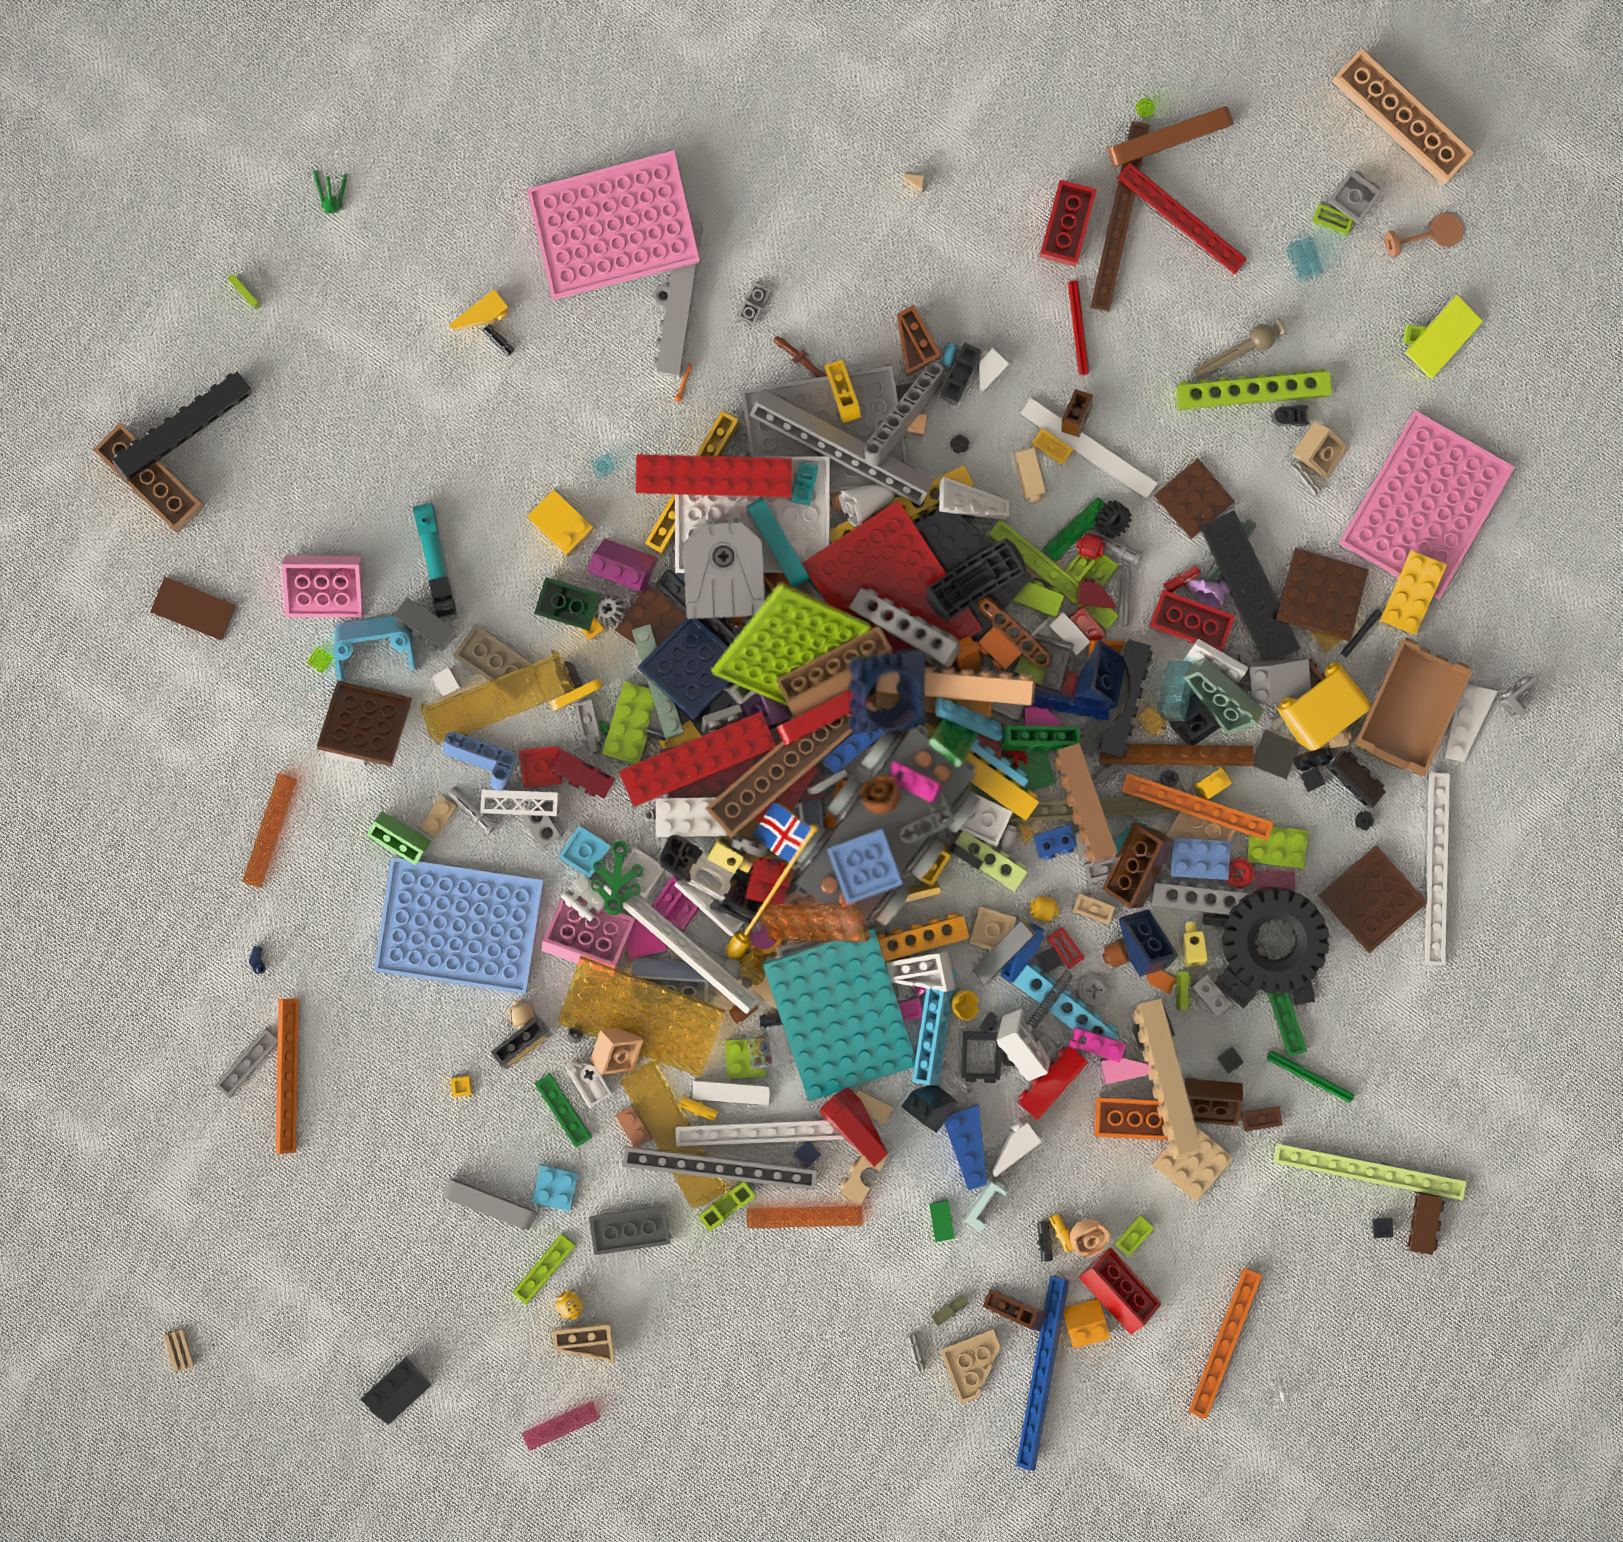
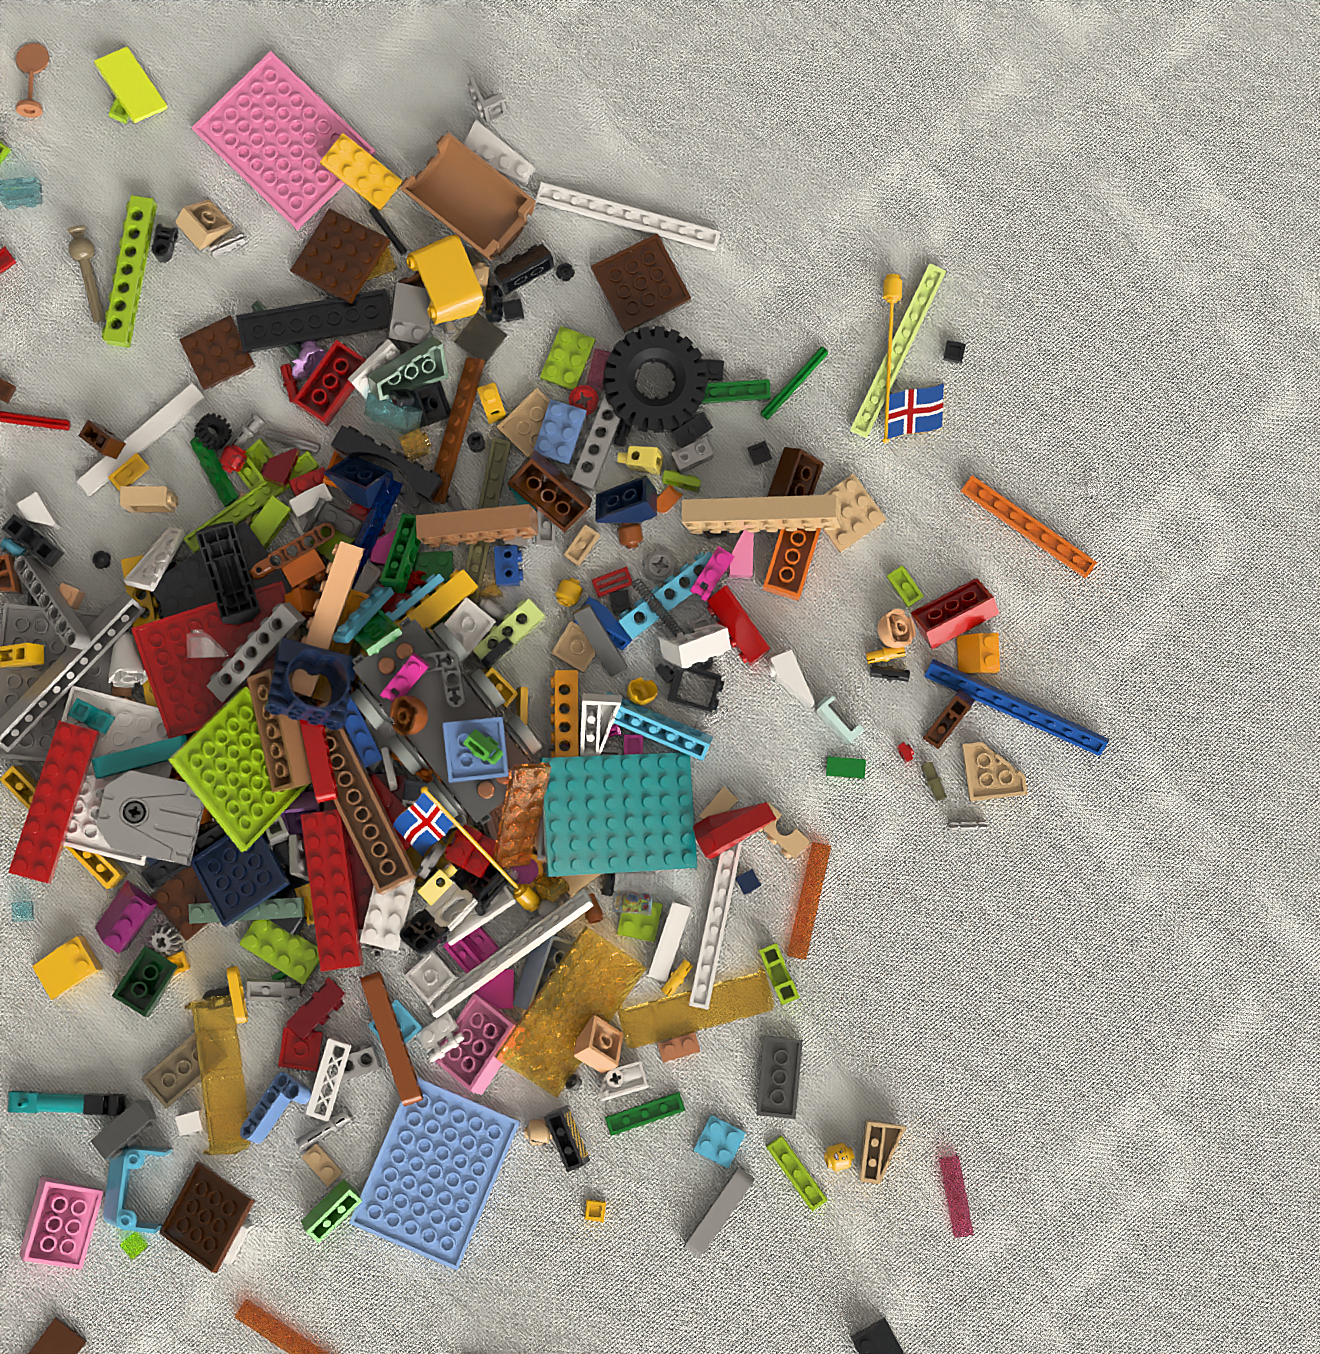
camera: 80 degrees left, 5 degrees down
(572, 852) = (391, 1038): none -> dark orange beam
(616, 882) = (432, 1002): green plant -> none
(719, 1167) = (739, 972): light grey brick -> none
(868, 874) = (483, 747): none -> bright green piece
(898, 574) = (203, 646): none -> clear slope
(930, 1106) = (731, 749): black slope -> none
(966, 1139) = (774, 723): blue wedge -> none
(971, 1275) = (905, 752): none -> red plate
(1192, 697) = (401, 397): none -> black plate
(1197, 806) = (509, 422): orange plate -> none
(1261, 1118) = (822, 438): reddish brown plate -> none
(1313, 1200) = (911, 409): none -> flag
(1425, 1223) = (959, 311): reddish brown brick -> none

